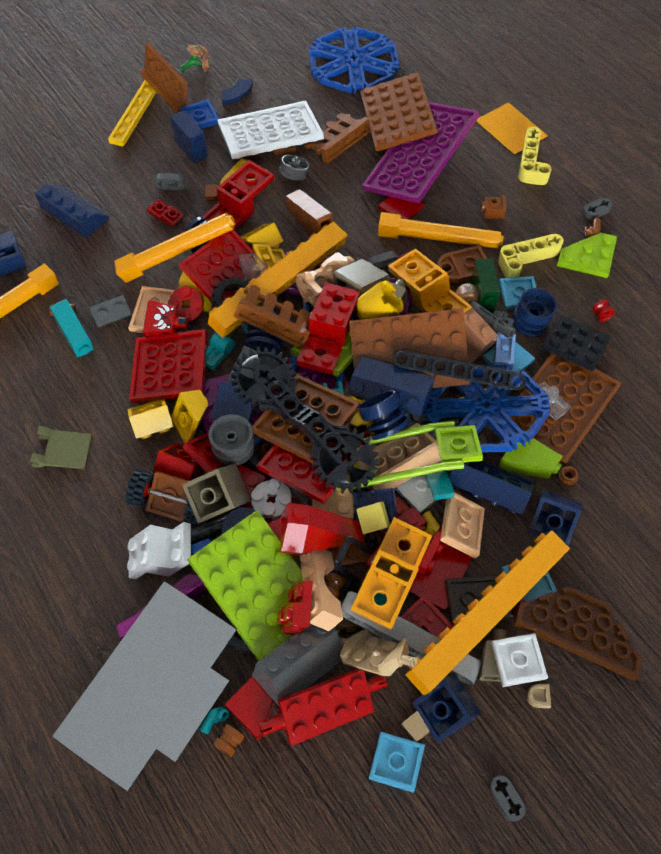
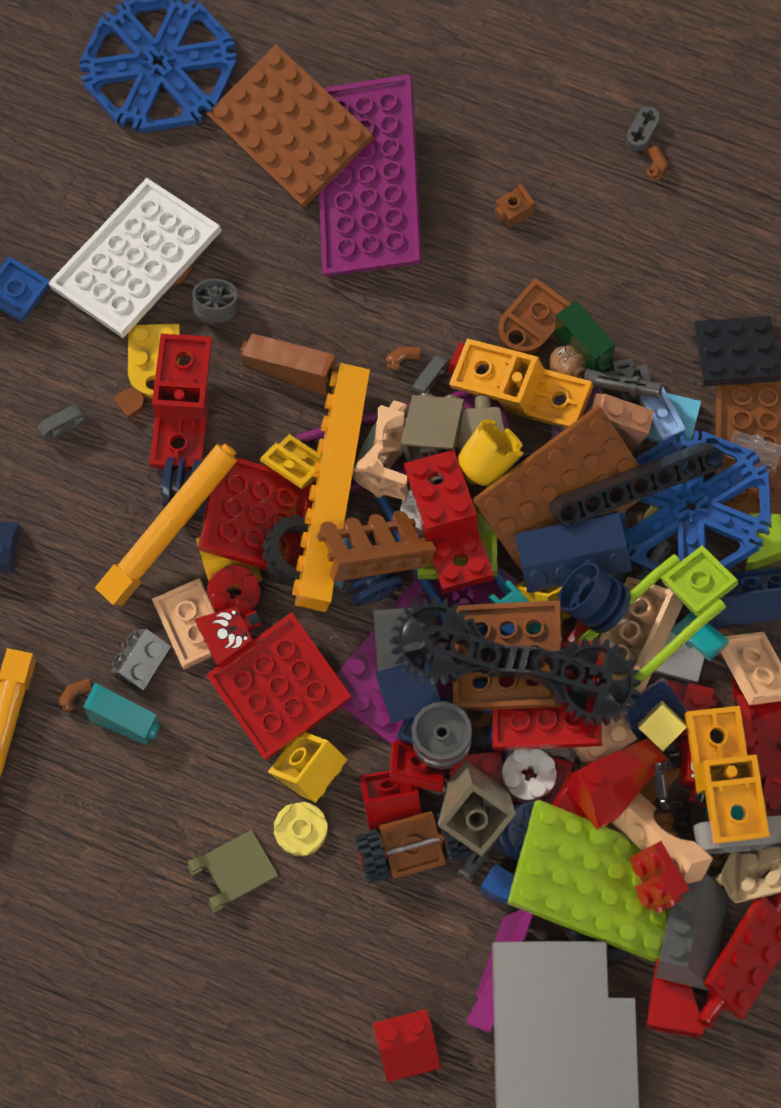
camera: 30 degrees left, 10 degrees up
(69, 614) = (406, 1045): none -> red slope
(118, 456) = (293, 831): none -> light yellow tile
(159, 550) = (451, 913): white bracket -> none
(164, 213) = (96, 473): red slope -> none
(189, 136) = (38, 338): dark blue brick -> none
(189, 413) = (358, 734): yellow slope -> none
(214, 716) = (644, 1039): teal arm -> none
(218, 350) = (320, 628): teal plate -> none
(228, 740) = (674, 1056): dark orange wheel -> none
(234, 93) = (34, 215): dark blue tile -> none
(251, 266) = (282, 488): clear slope -> none
(264, 235) = (253, 432): yellow slope -> none
(343, 140) = (247, 201): dark orange fence -> none
(368, 244) = (399, 354): none -> dark orange arm
(393, 225) = (409, 312): light orange brick -> none
(402, 207) = (394, 283): red tile -> none
(432, 524) = (721, 689): yellow arm -> none
(508, 126) = (451, 56): light orange sticker -> none
(513, 288) = (624, 317): medium azure tile -> none
(516, 254) = (605, 250): light yellow beam -> none
(530, 170) = (511, 92): light yellow beam -> none
(534, 312) = (668, 329): dark blue wheel -> none
(589, 255) = (676, 207): lime plate -> none
(603, 310) = (740, 284): red wheel -> none

